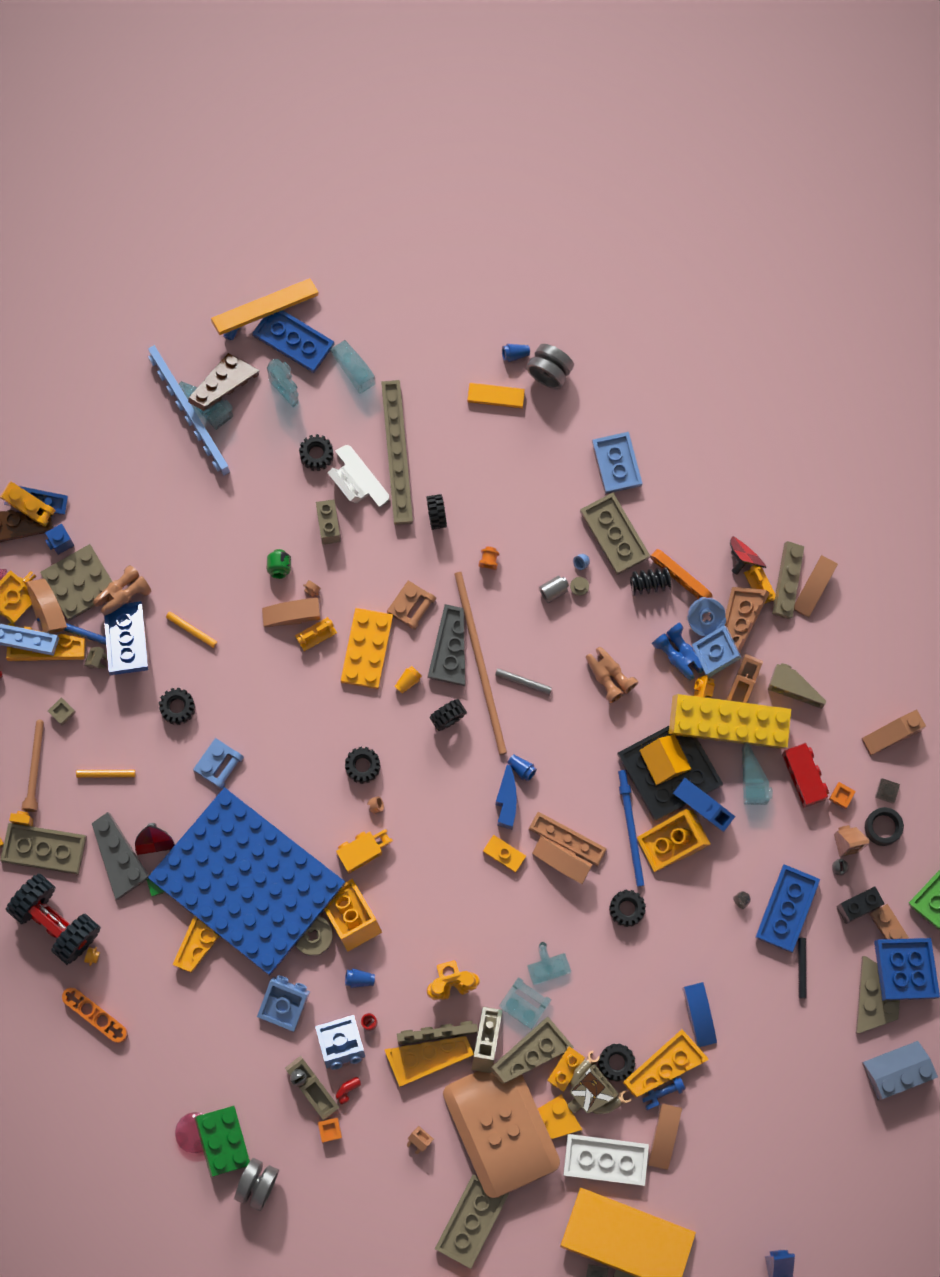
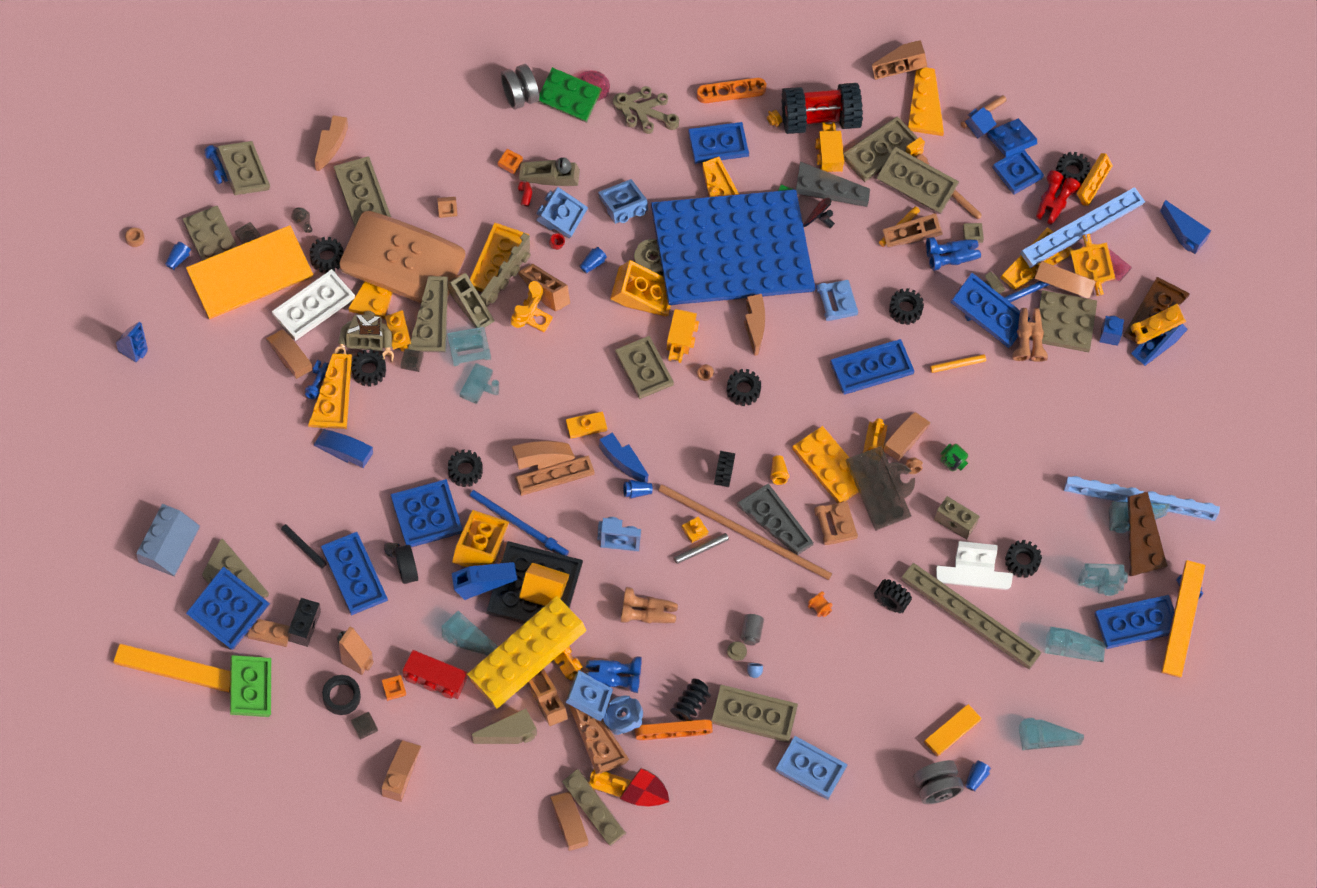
camera: 130 degrees right, 10 degrees down
(51, 791) = (917, 180): none -> dark tan plate
(81, 886) = (830, 148): none -> light orange brick
(91, 706) = (959, 251): none -> blue piece
(103, 754) = (913, 231): none -> nougat slope
(157, 979) = (721, 141): none -> blue plate
(180, 1069) = (644, 109): none -> dark tan plant
(255, 687) = (872, 366): none -> blue plate
(298, 804) = (755, 321): none -> nougat slope
(354, 592) = (881, 487): none -> clear smoke plate
(415, 853) = (644, 367): none -> dark tan plate
(417, 1000) = (555, 292): none -> nougat slope
(445, 334) = (1043, 734): none -> clear light blue slope
(513, 699) = (695, 529): none -> light orange tile
(539, 1248) = (302, 217): none -> clear smoke animal
(566, 1194) = (324, 245): none -> black tyre
(578, 1035) = (412, 360): none -> clear smoke plate
(579, 746) = (617, 537): none -> medium blue plate
(690, 901) = (426, 513): none -> blue plate
(747, 872) = (406, 564): none -> black tyre

